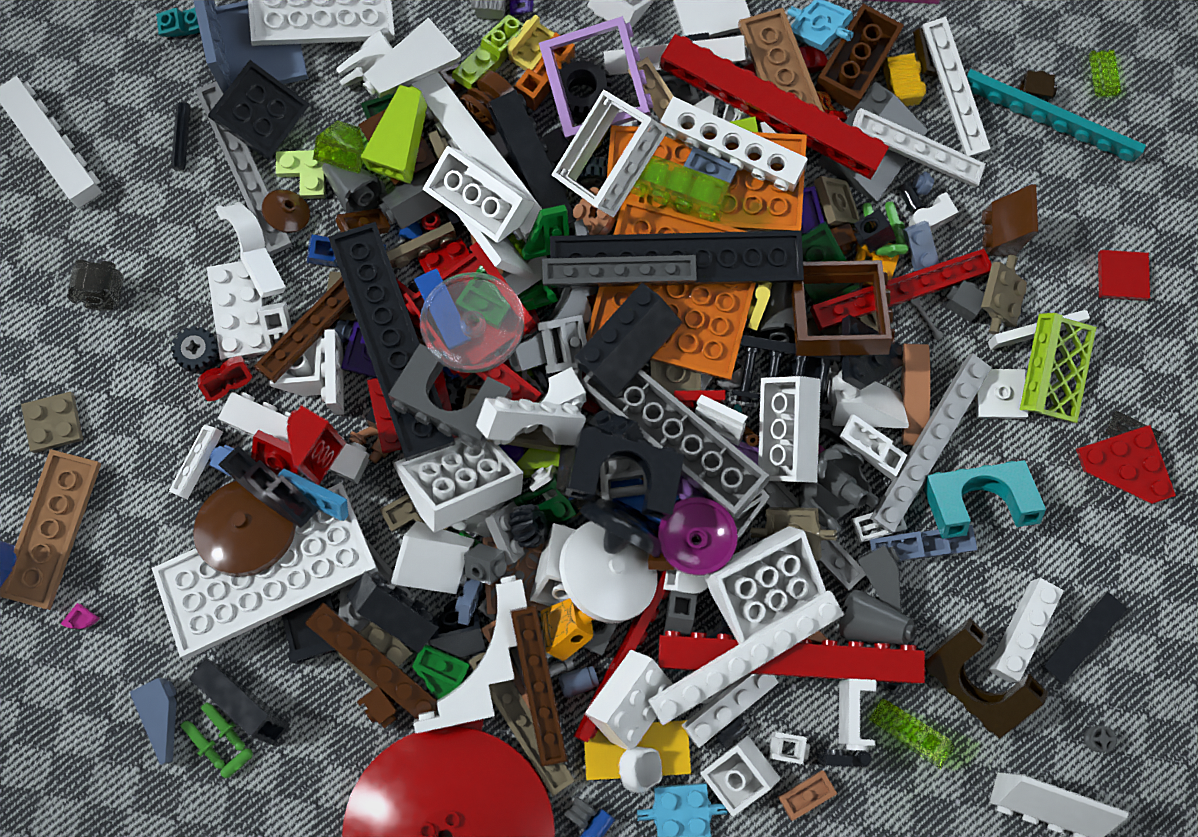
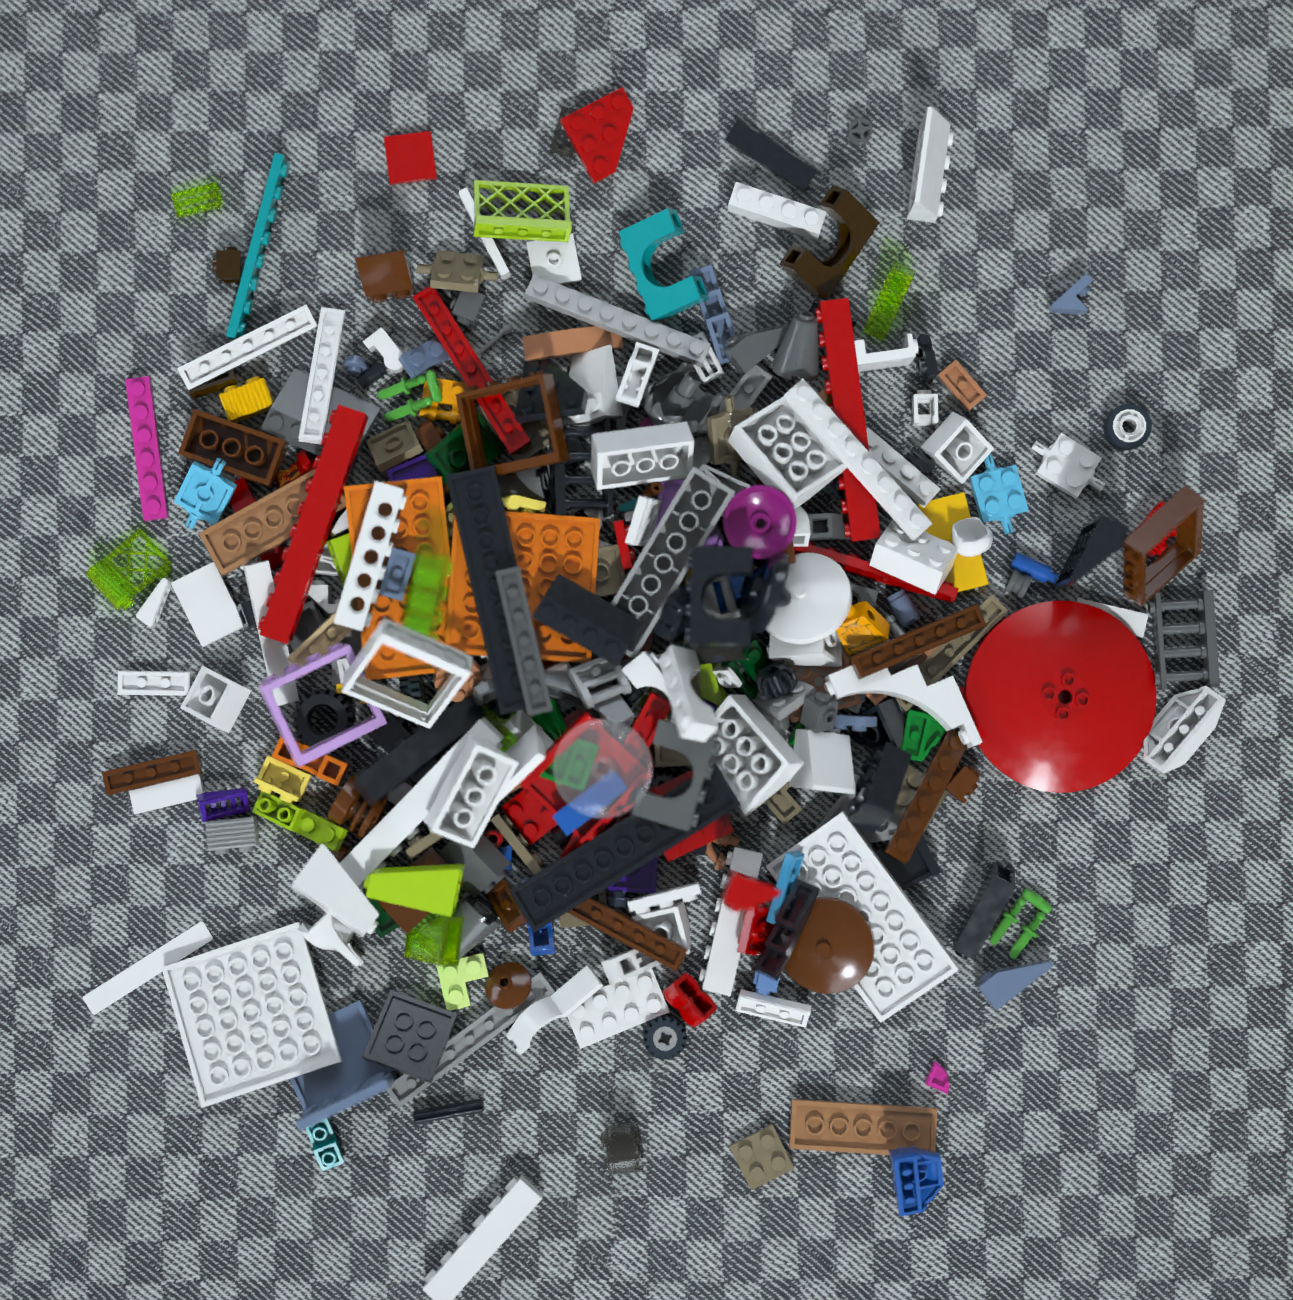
camera: 95 degrees left, 10 degrees up
(548, 223) = (488, 718): green wing -> none
(874, 231) = (424, 396): black brick -> none

